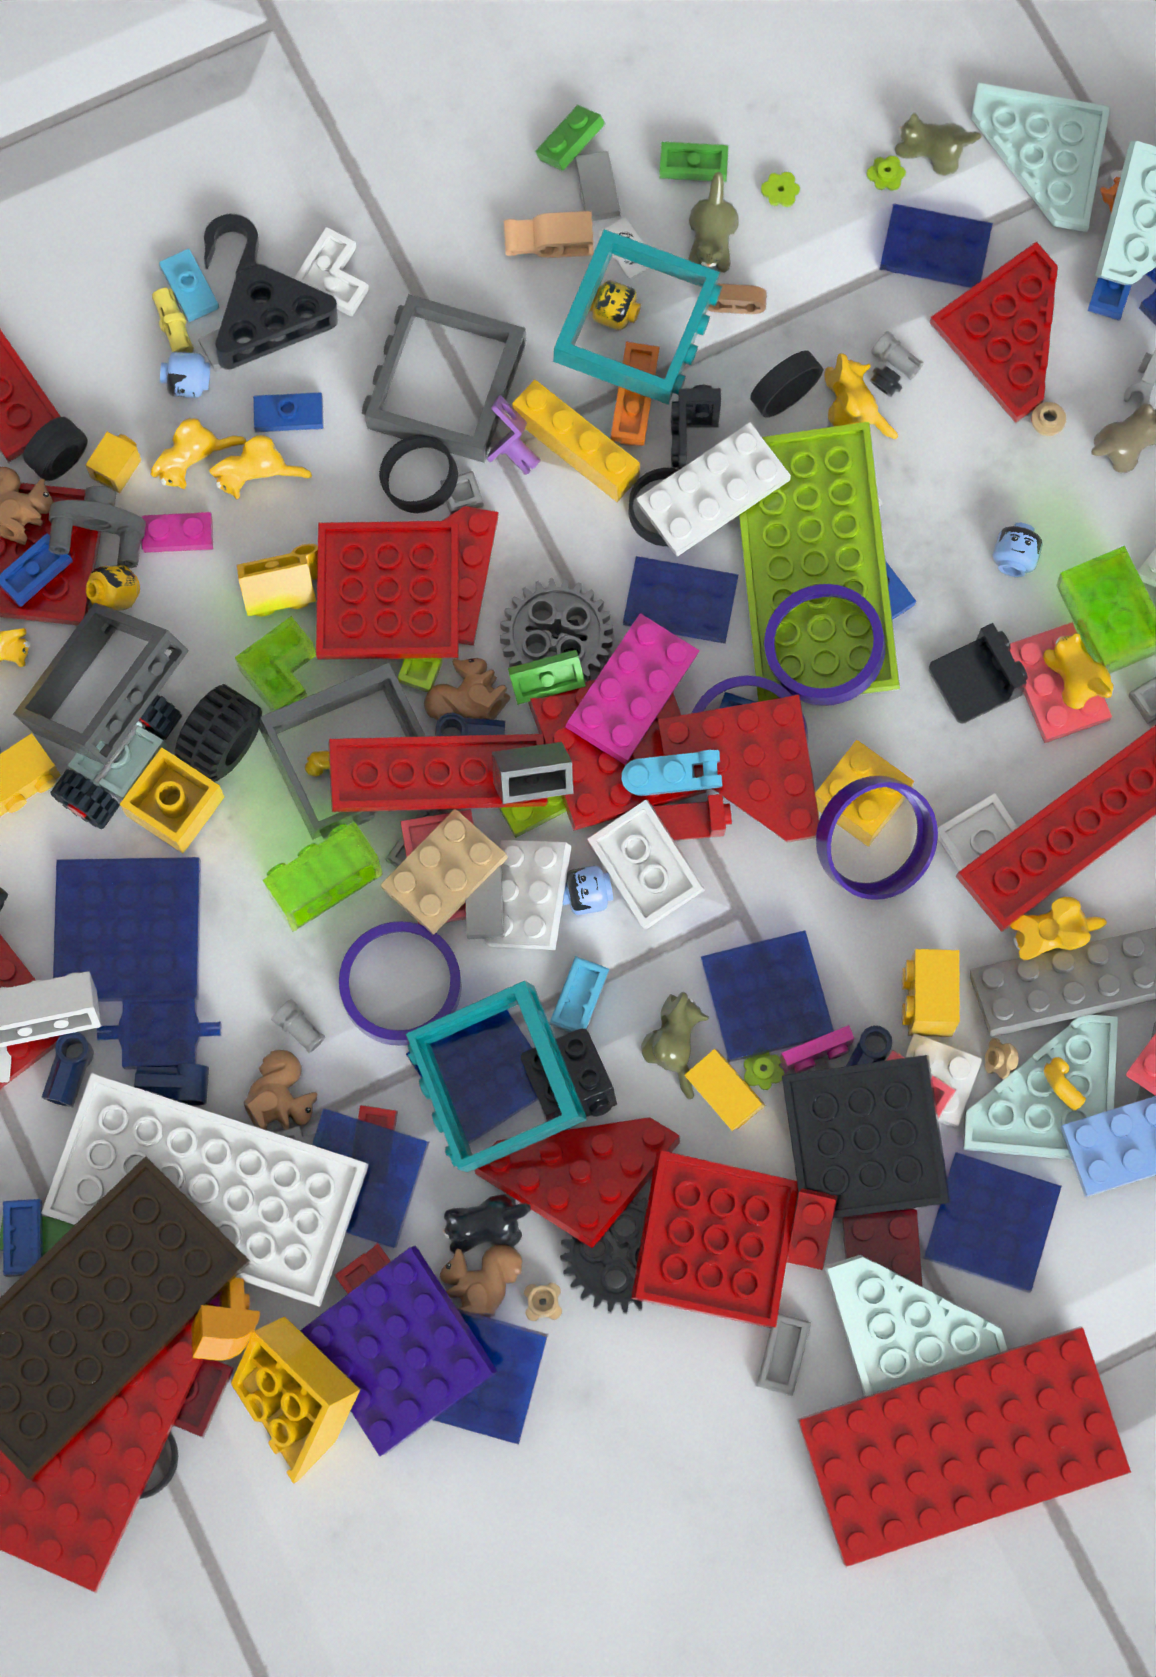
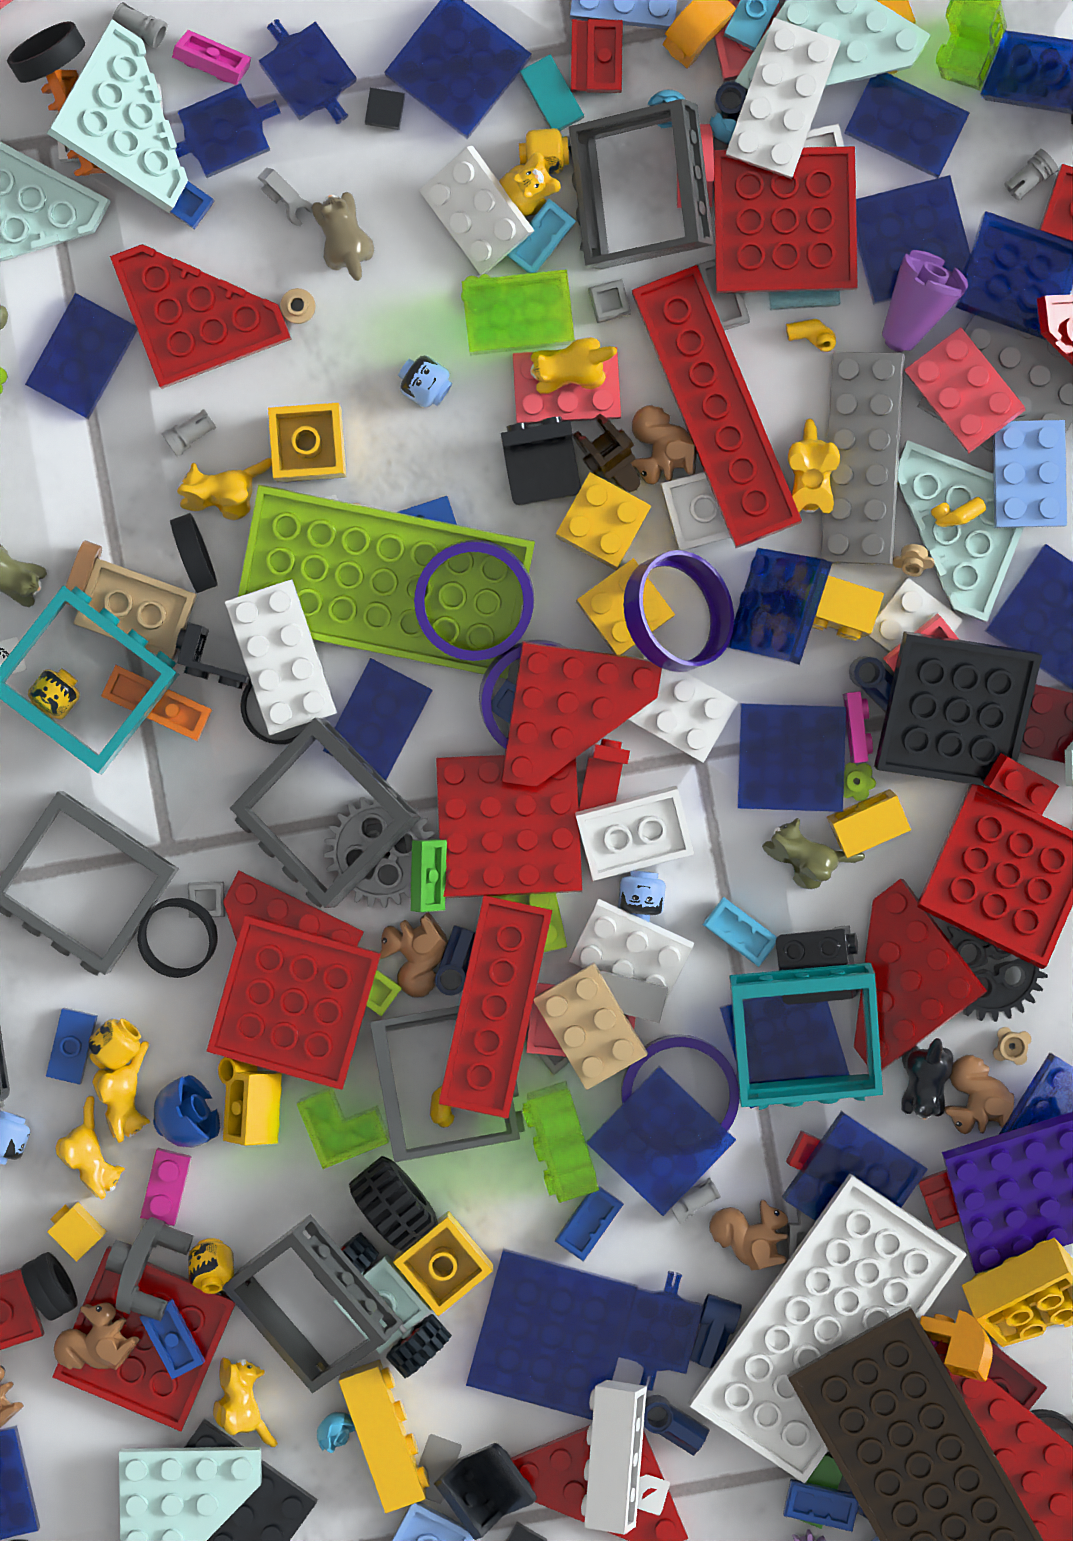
camera: 75 degrees left, 15 degrees up
(249, 931) = (589, 1223): none -> blue plate
(253, 525) = (184, 1115): none -> blue cylinder
(301, 445) = (114, 1044): none -> yellow head
(350, 970) = (661, 1140): none -> clear blue plate
(511, 443) = (171, 838): medium lavender bracket -> none
(532, 772) = (520, 909): dark grey brick -> none
(559, 621) = (402, 813): none -> dark grey window
(577, 441) = (187, 774): yellow brick -> none
(632, 689) = (461, 796): dark pink plate -> none
(672, 773) = (562, 785): medium azure plate -> none
(723, 352) = (141, 604): none -> tan plate
(778, 880) = (686, 713): none -> white plate
(886, 380) = (213, 451): black plate -> none
(913, 929) = (779, 605): none -> clear blue plate
(923, 457) = (307, 442): none -> yellow brick
(940, 748) = (603, 521): none -> yellow brick
(1005, 736) = (610, 454): none -> dark brown hinge
(1034, 791) = (670, 443): none -> medium nougat animal

